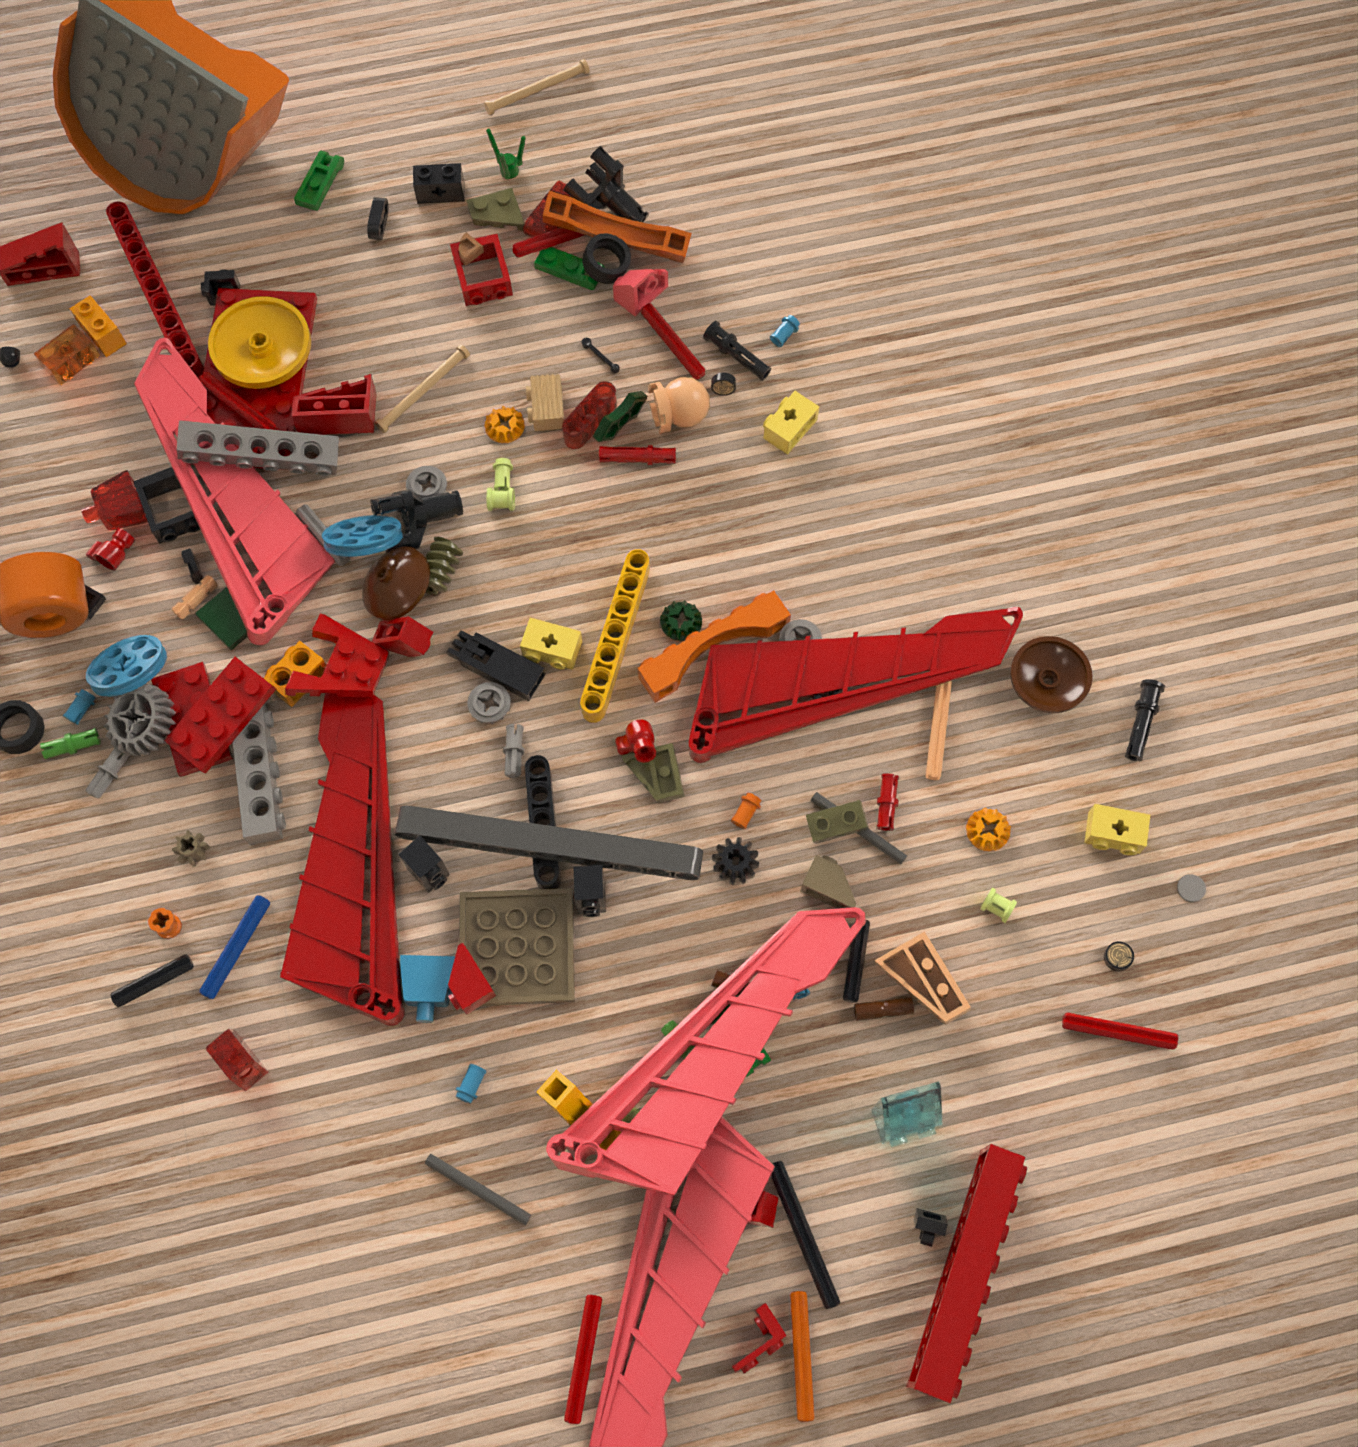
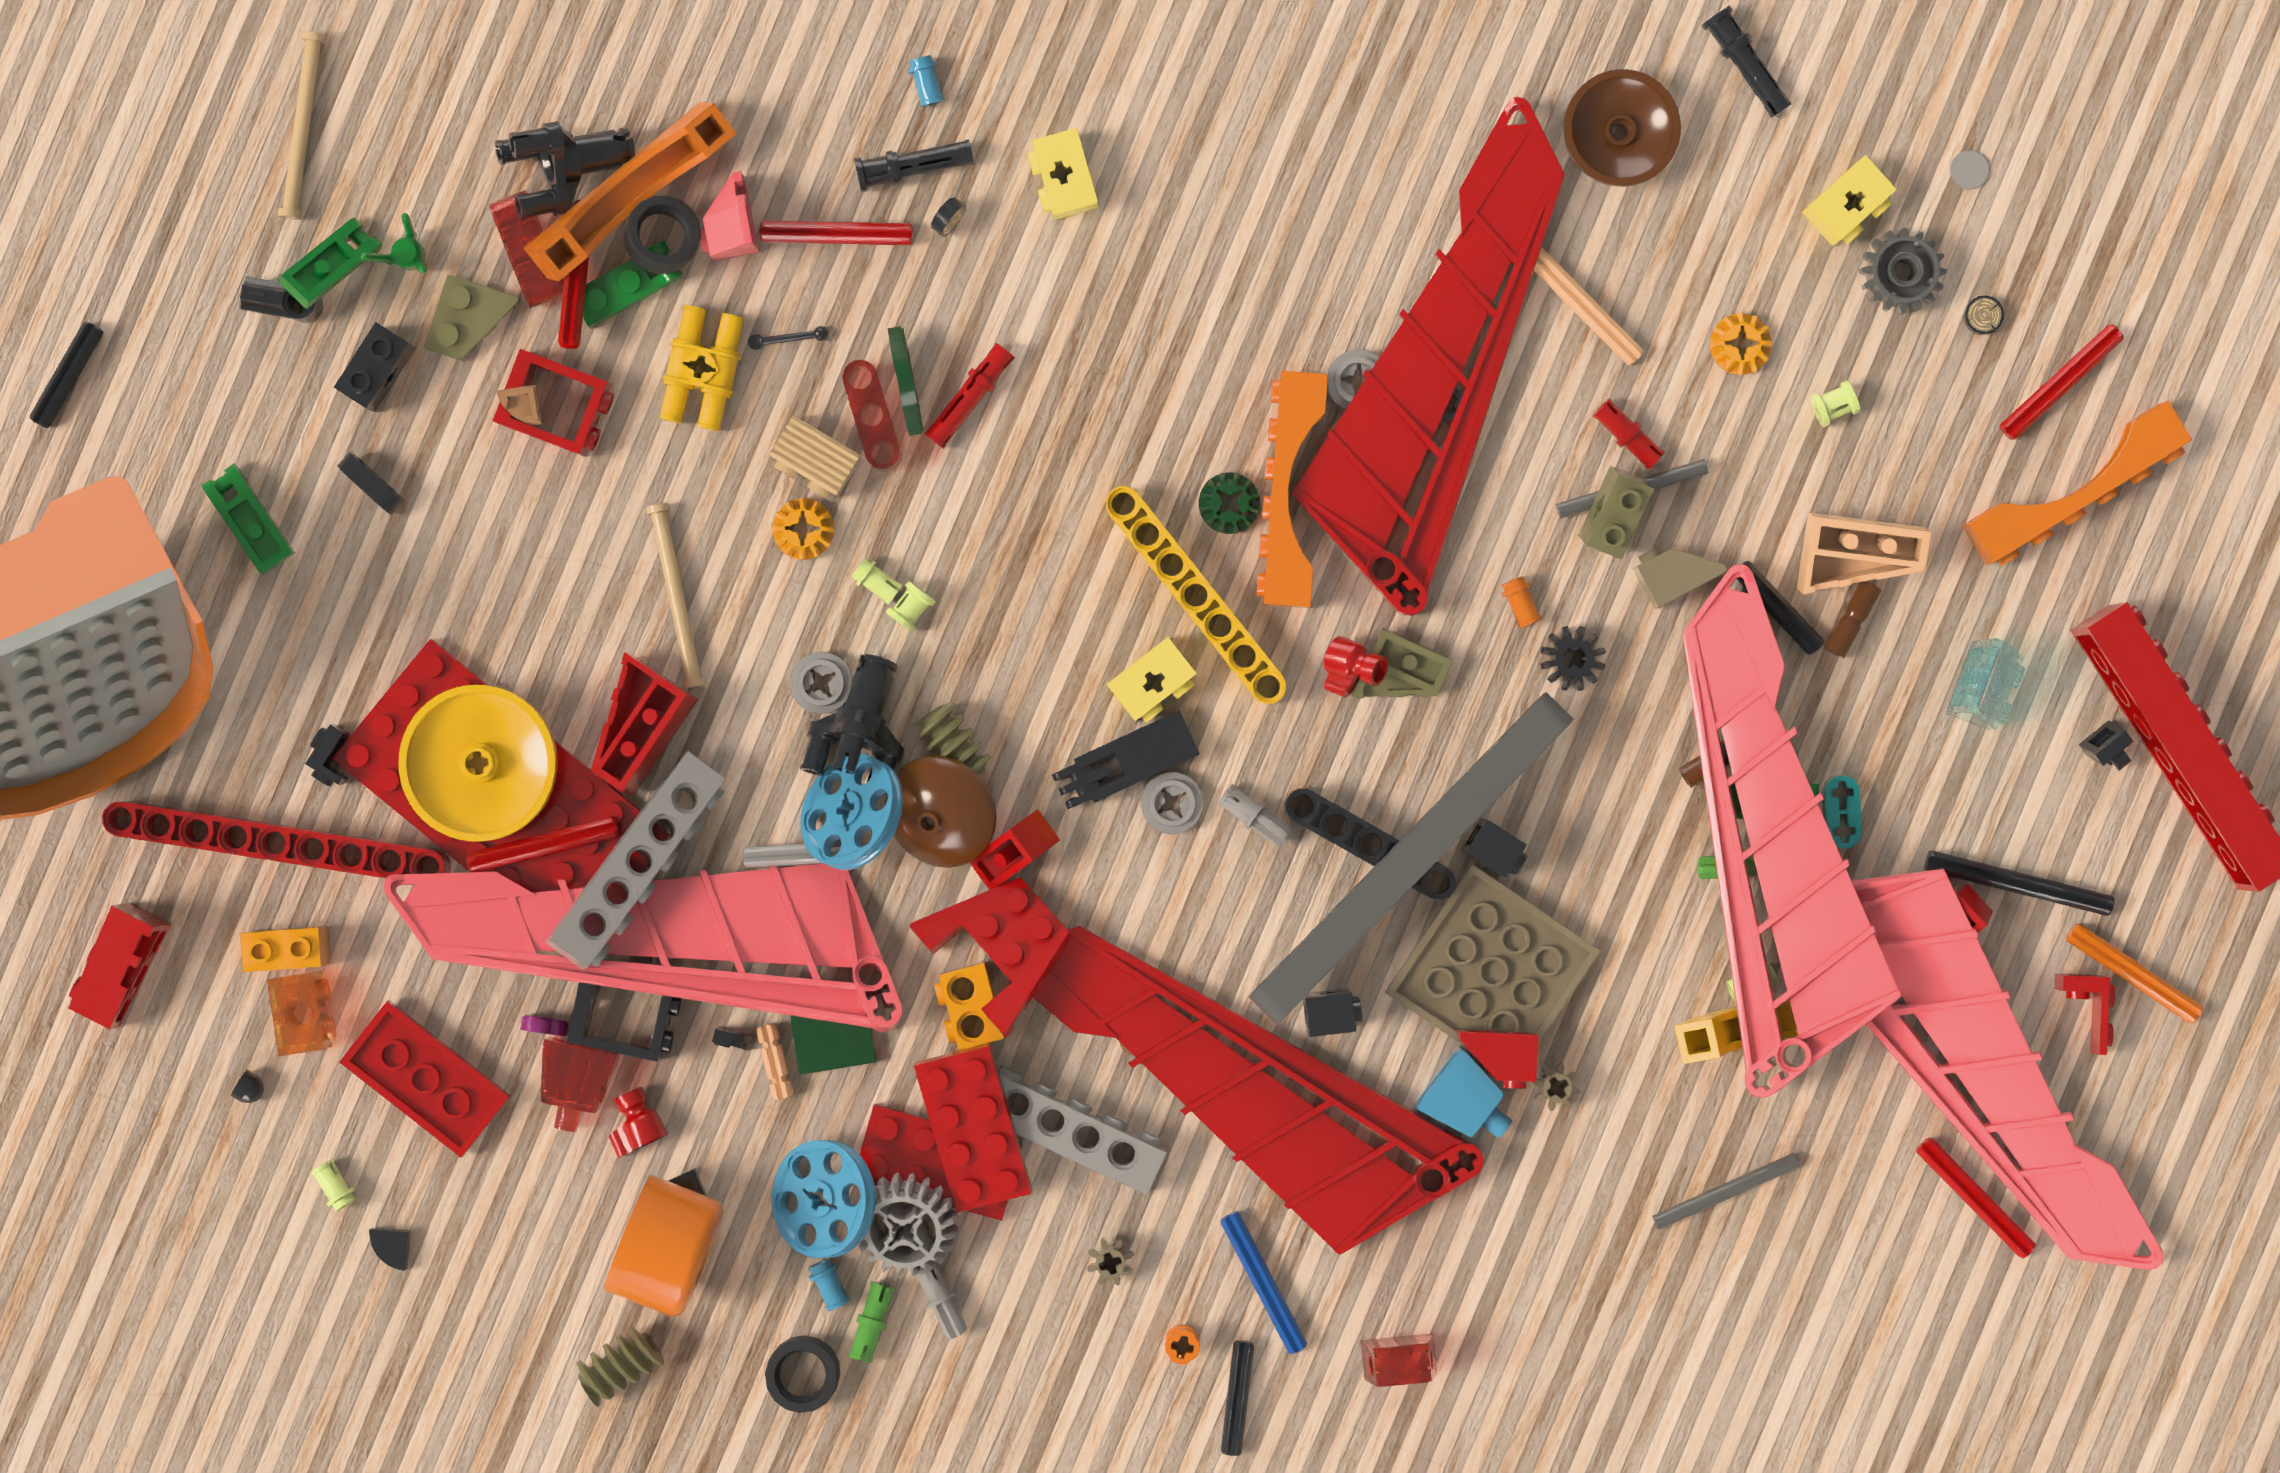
camera: 60 degrees left, 20 degrees up
(69, 434) = (425, 1078): none -> red plate
(135, 466) = (544, 1025): none -> magenta tile
(335, 67) = (66, 374): none -> black axle
(442, 127) = (274, 300): none -> black piece
(470, 1084) = (1609, 1124): dark azure pin -> none
(474, 129) = (328, 263): none -> green plate
(474, 1040) = (1566, 1087): none -> dark tan gear
(552, 324) = (688, 351): none -> yellow pin
(680, 403) = (944, 294): light nougat tile -> none
(769, 1093) = (1851, 810): none -> teal beam
(1114, 877) = (1923, 266): none -> dark grey gear
(1129, 1108) = (2144, 442): none -> orange arch

